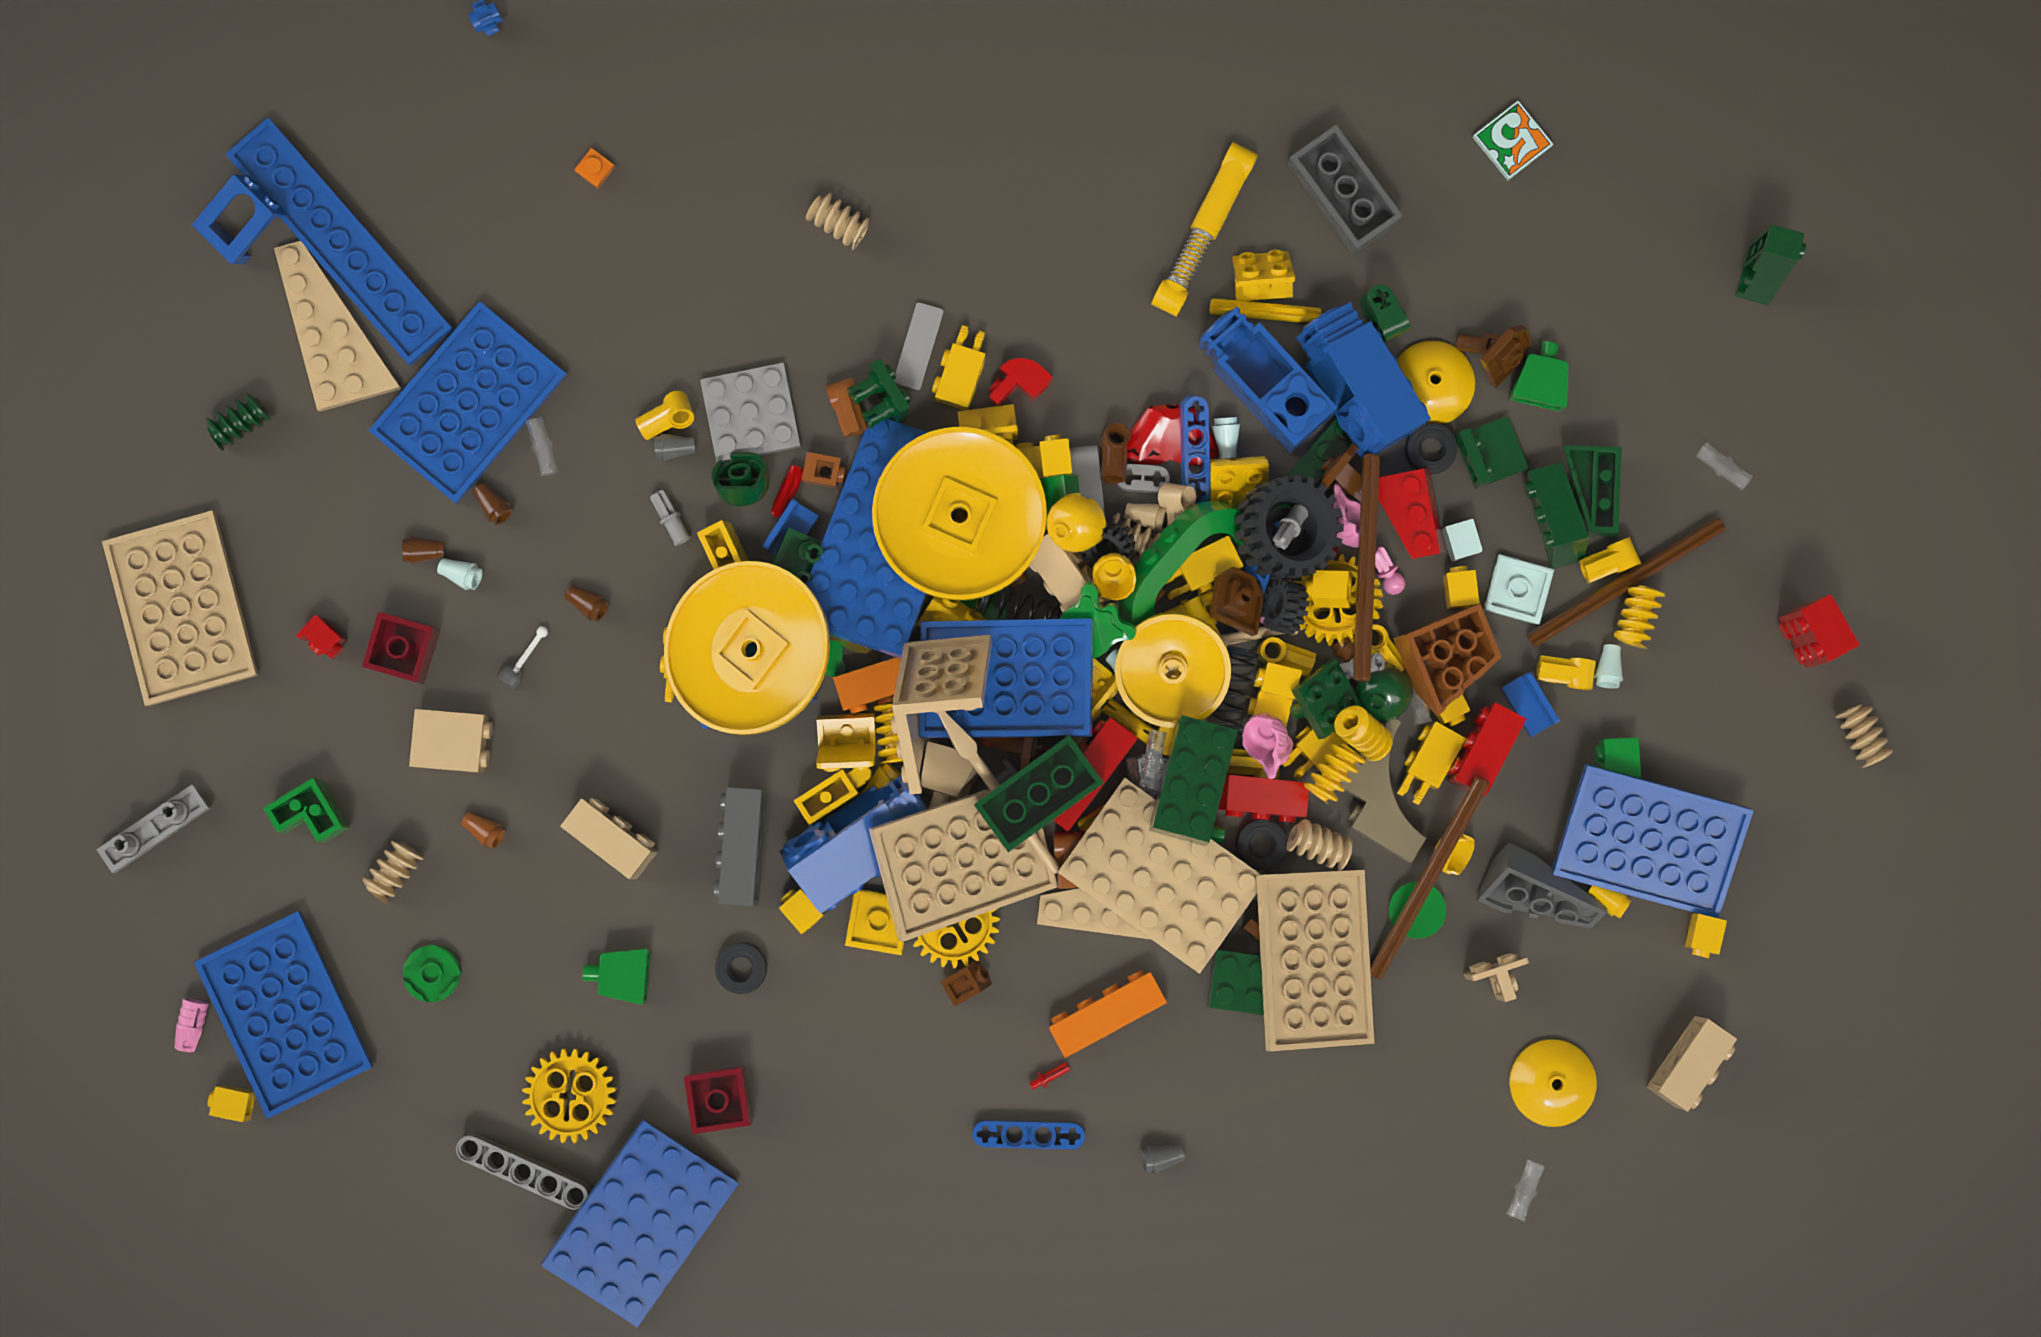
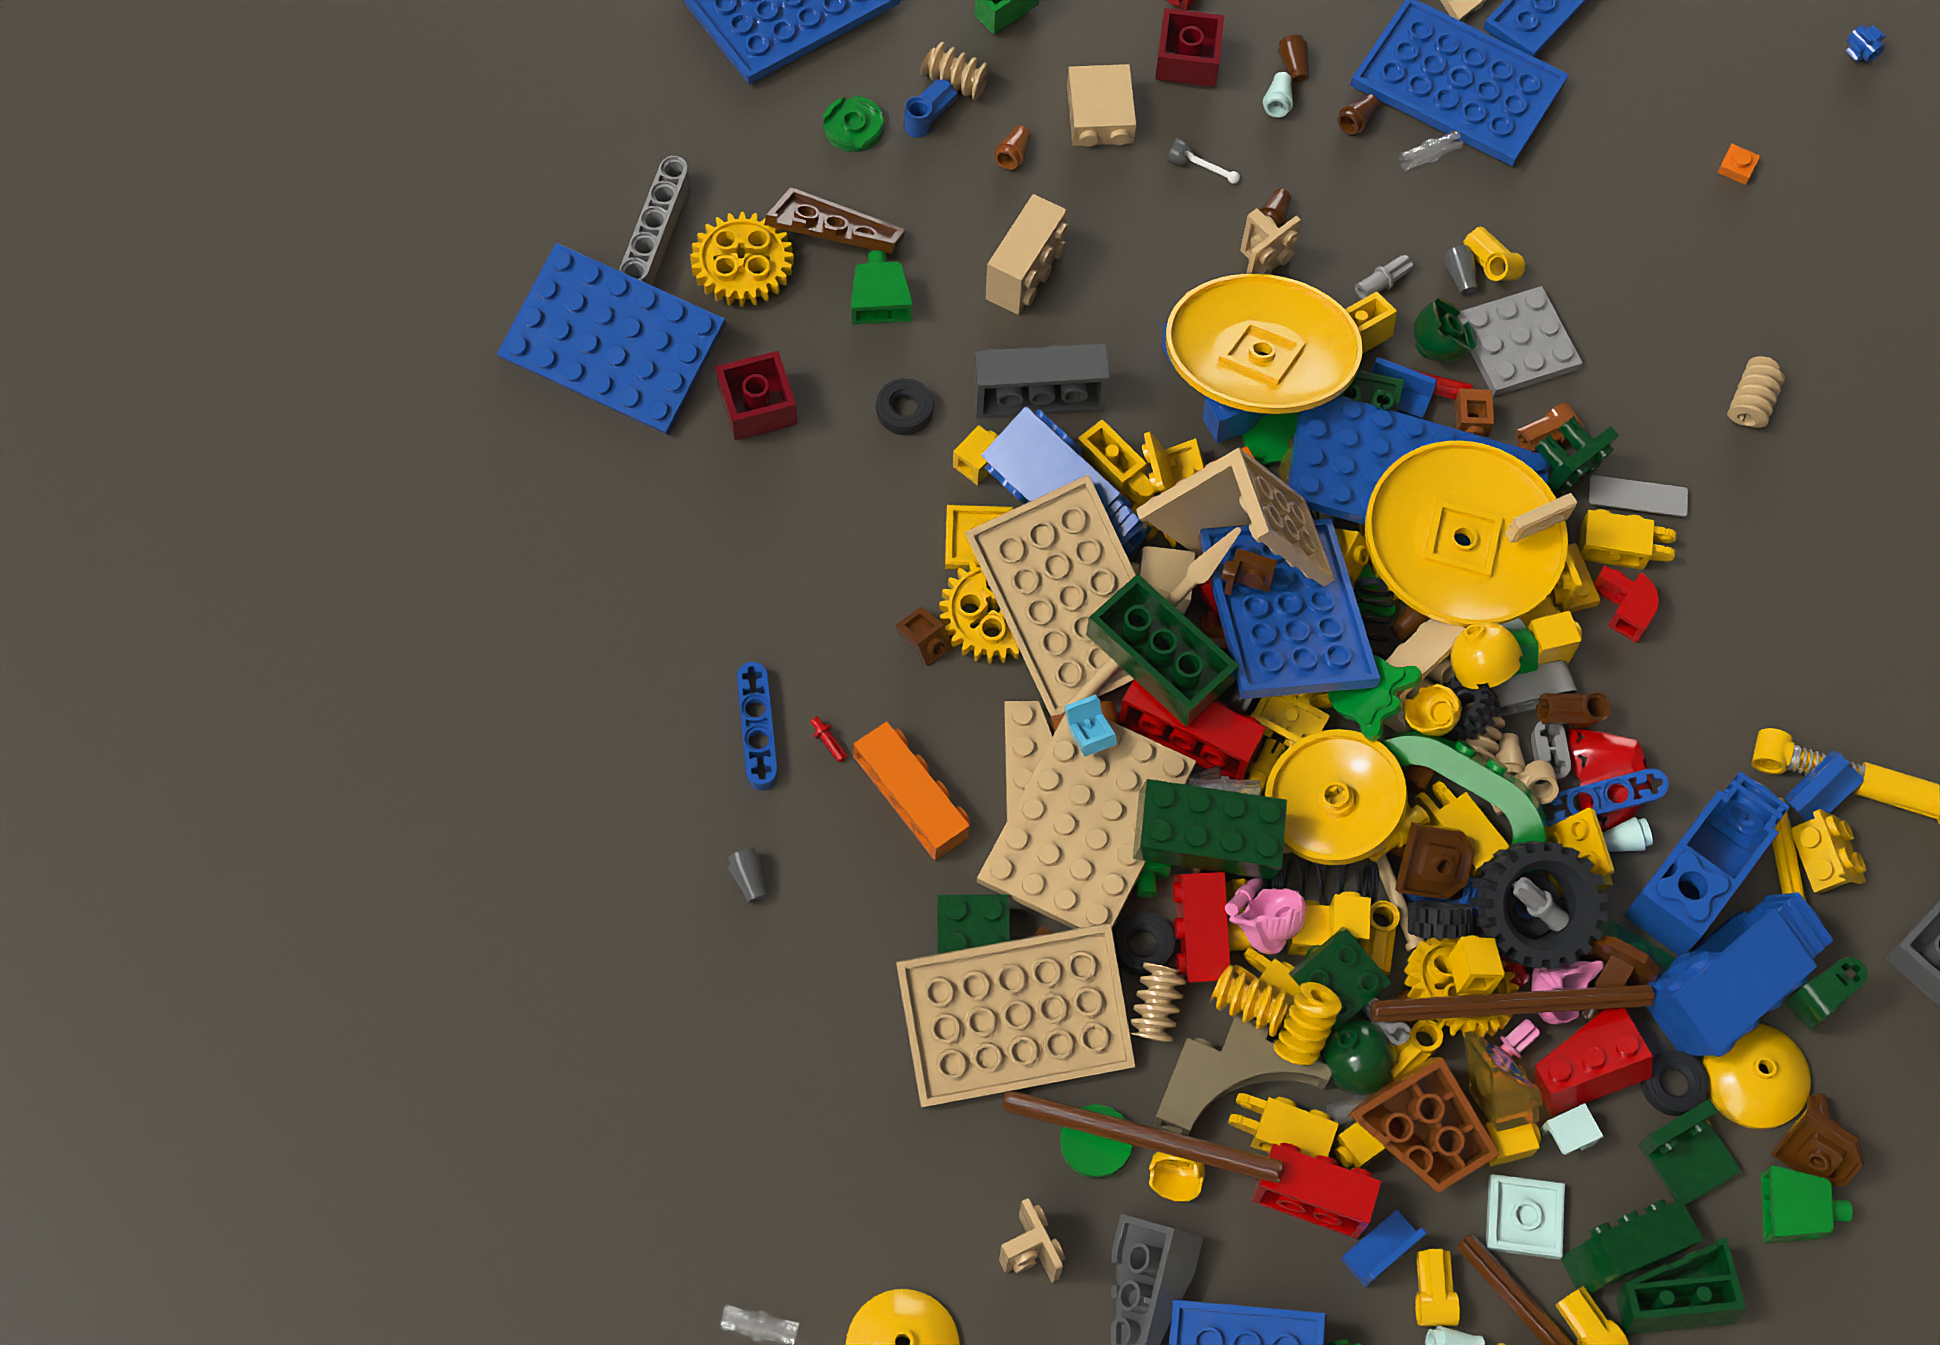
camera: 75 degrees right, 20 degrees down
(425, 900) = (926, 108): none -> blue piece
(541, 1013) = (827, 220): none -> reddish brown wing
(624, 623) = (1267, 244): none -> tan bracket
(962, 449) = (1541, 518): none -> tan tile
(972, 716) = (1249, 570): none -> reddish brown bracket
(1090, 862) = (1089, 725): none -> medium azure bracket
(1210, 267) = (1824, 786): none -> blue panel
(1247, 762) = (1243, 896): none -> bright pink piece
(1424, 588) = (1500, 1085): none -> clear yellow slope

